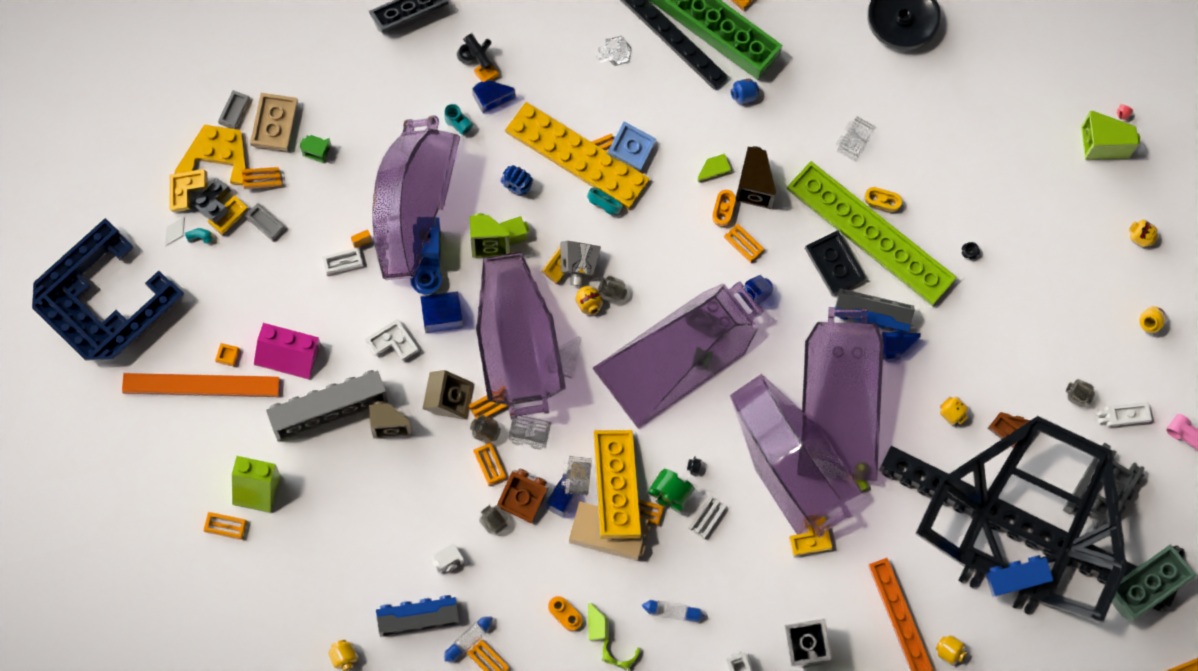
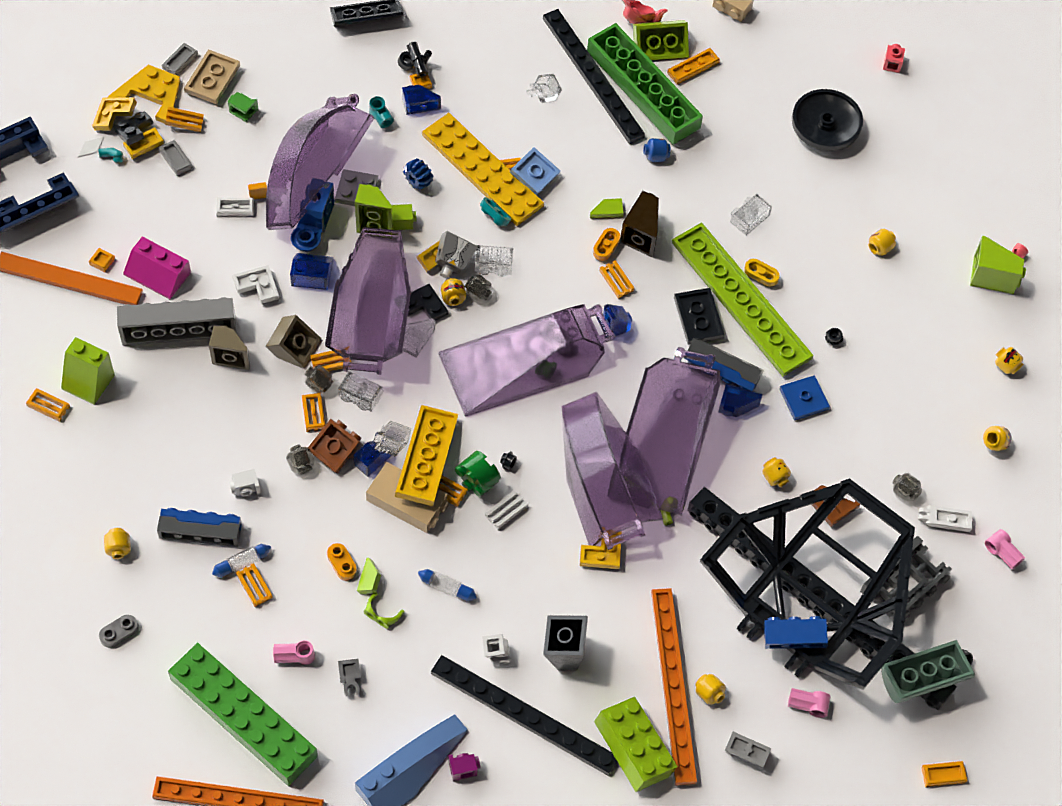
camera: 15 degrees right, 10 degrees down
(457, 209) = (349, 185): none -> light grey plate
(569, 316) = (428, 300): none -> black plate
(619, 255) = (494, 260): none -> clear brick
(958, 323) = (804, 397): none -> blue plate
(990, 136) = (882, 242): none -> yellow head
(1050, 636) = (816, 702): none -> bright pink piece

